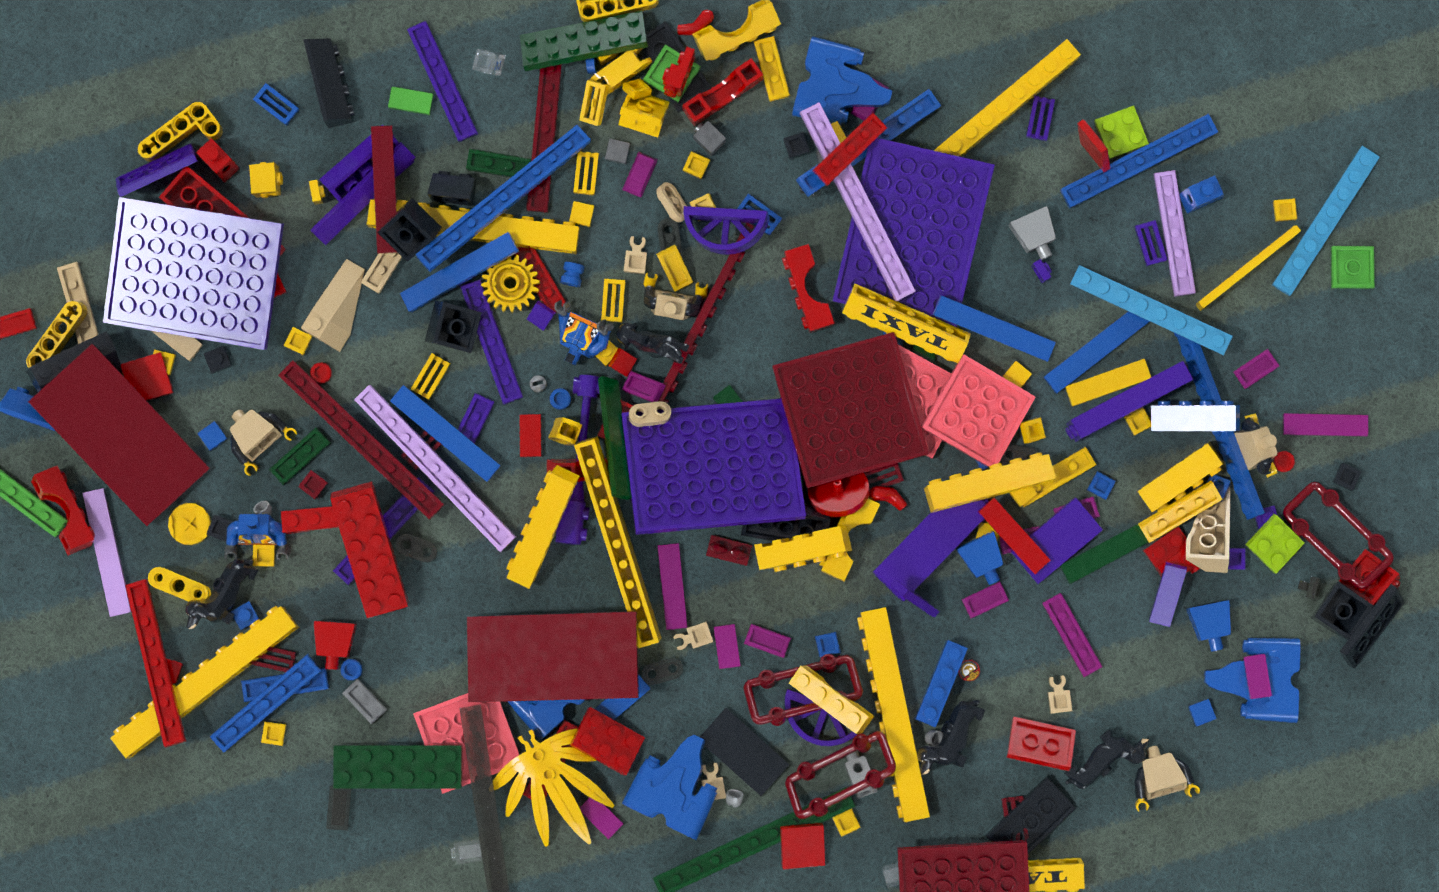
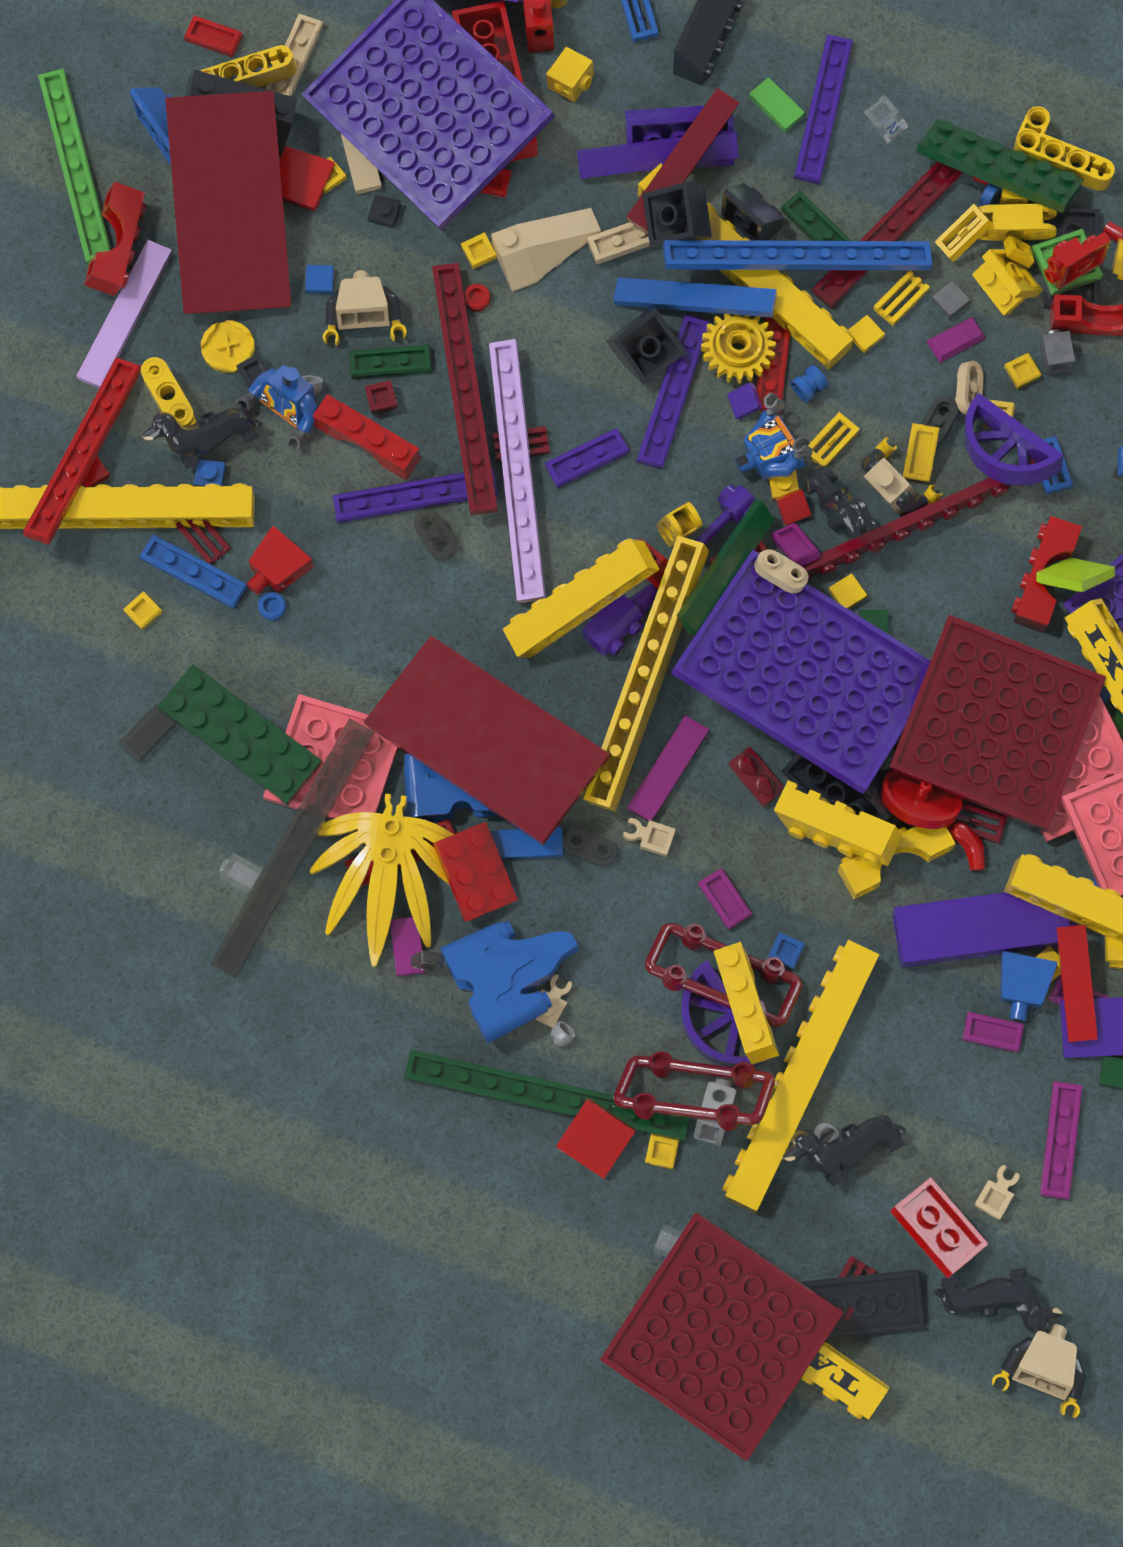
camera: 45 degrees right, 10 degrees down
(264, 555) = (276, 430): yellow tile -> none
(265, 703) = (159, 572): blue tile -> none
(317, 192) = (613, 122): yellow plate -> none
(364, 701) = (259, 647): flat silver tile -> none
(369, 549) = (385, 494): red brick -> none
(438, 361) = (600, 363): yellow tile -> none
(445, 433) = (554, 443): blue tile -> none
(530, 435) = (640, 511): red tile -> none
(538, 388) = (687, 469): light grey hinge -> none
(560, 399) = (700, 497): blue tile -> none
(621, 818) = (427, 961): none -> clear smoke tile
(635, 260) = (887, 416): tan plate -> none
(696, 391) = (848, 592): none -> yellow tile
(727, 646) = (677, 872): magenta tile -> none
(743, 752) = (609, 994): black tile -> none
(828, 279) = (1075, 574): none -> lime tile
(914, 598) = (917, 965): dark purple tile -> none
(940, 683) = (877, 1081): blue brick -> none
(969, 670) = (918, 1092): tile -> none

